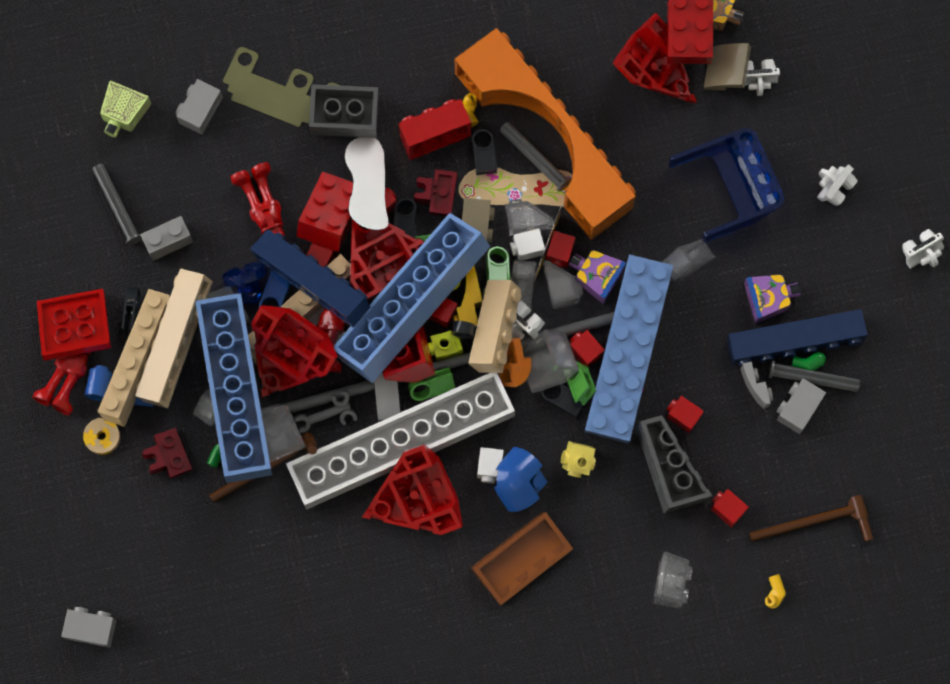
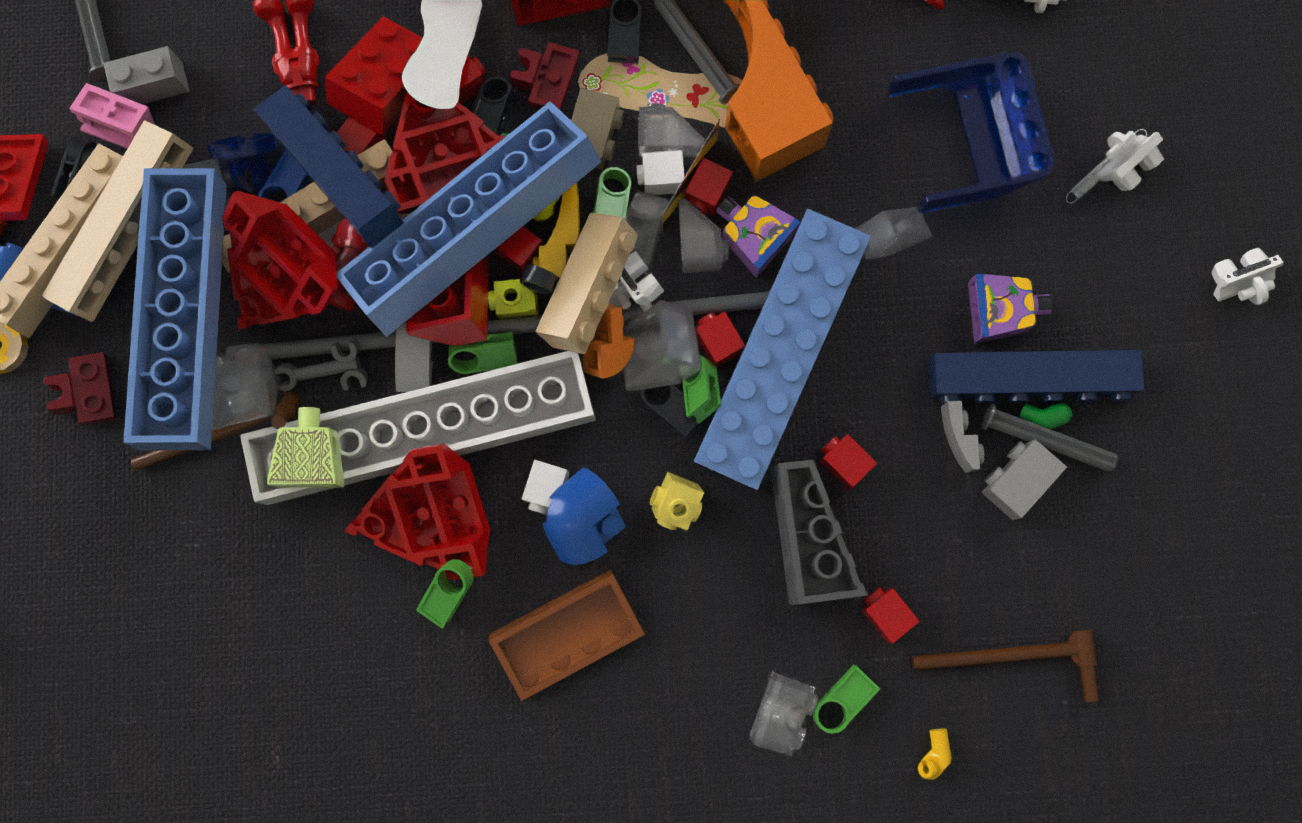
camera: 15 degrees right, 5 degrees up
(152, 270) = (109, 115): none -> bright pink hinge
(335, 467) = (306, 454): none -> yellowish green torso
(437, 548) = (442, 597): none -> bright green piece
(713, 564) = (852, 693): none -> bright green piece
(819, 189) = (1130, 138): none -> white piece

